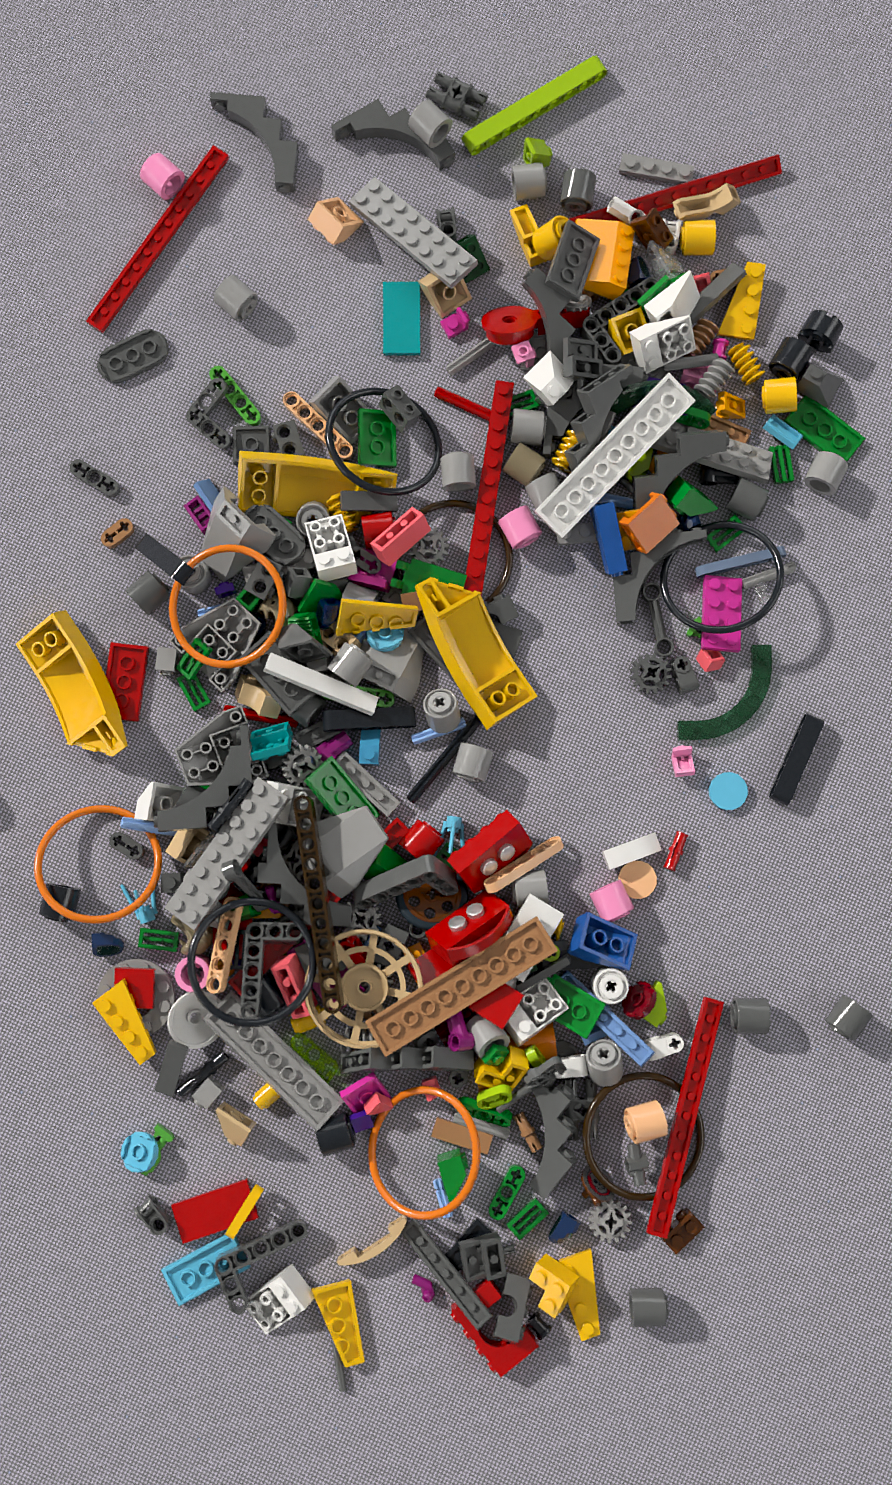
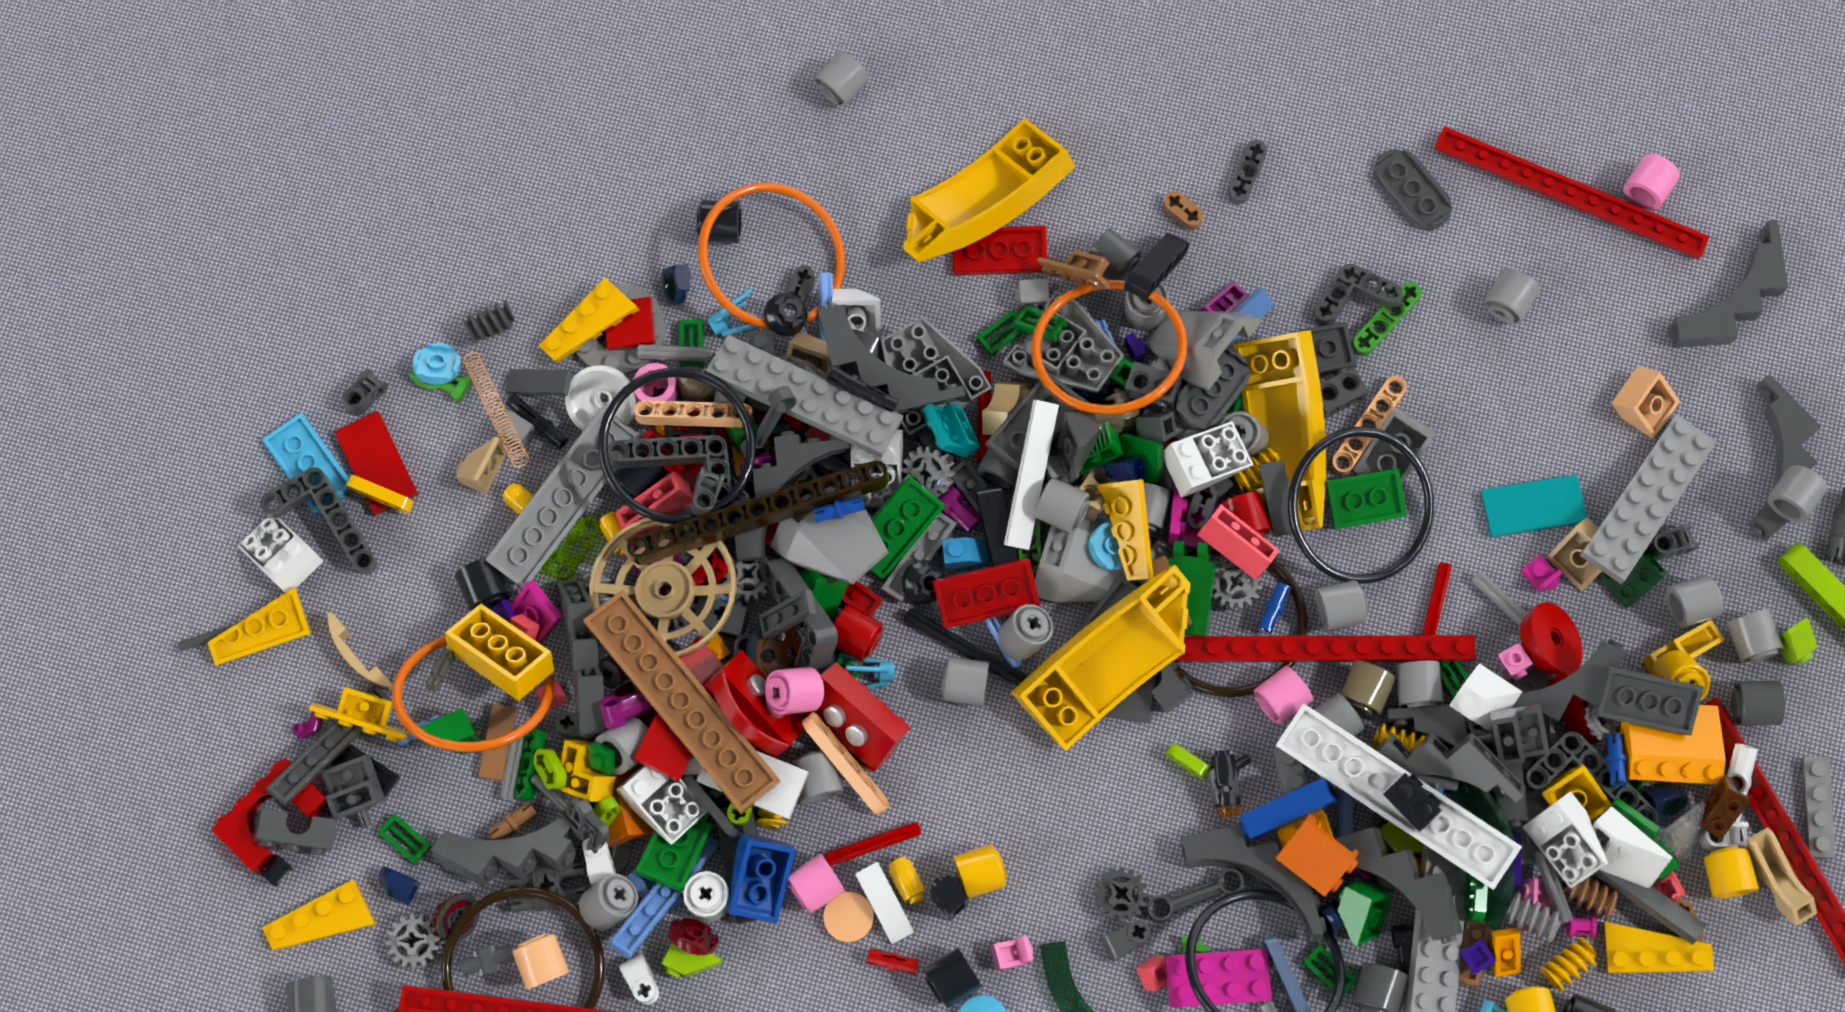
camera: 85 degrees right, 10 degrees down
(111, 1103) = (489, 321): none -> dark grey piece
(154, 867) = (778, 321): none -> black piece
(155, 618) = (1080, 268): none -> medium nougat bracket
(165, 955) = (672, 352): none -> light grey axle
(177, 1117) = (497, 410): none -> light nougat piece
(291, 942) = (706, 488): none -> dark grey piece
(326, 838) = (839, 509): none -> blue pin
(385, 789) = (913, 581): none -> black piece
(396, 1127) = (499, 652): none -> yellow brick
(399, 408) = (1407, 517): dark grey brick -> none
(403, 1177) = (439, 670): none -> dark grey axle
(405, 891) = (787, 614): none -> dark grey tile
(406, 735) = (985, 592): none -> red tile
(424, 1245) = (362, 710): none -> yellow bracket
(450, 521) = (1274, 607): none -> blue pin
(467, 895) = (794, 690): none -> bright pink piece
(495, 218) = (1694, 601): none -> light grey piece
(495, 1202) = (420, 795): green beam -> none
(557, 607) = (1187, 761): none -> lime beam
(557, 1283) = (331, 882): yellow brick -> none
(578, 582) = (1224, 782): none -> black piece
(584, 853) = (873, 843): none -> red axle
(609, 295) = (1616, 759): none -> blue pin
(617, 831) = (906, 880): none -> yellow head
(620, 774) = (980, 871): none -> yellow piece
(626, 446) = (1408, 806): none -> black brick
(636, 801) = (948, 896): none -> black brick
(697, 808) = (951, 978): none -> black piece
(733, 425) = (1477, 957): none -> dark purple plate

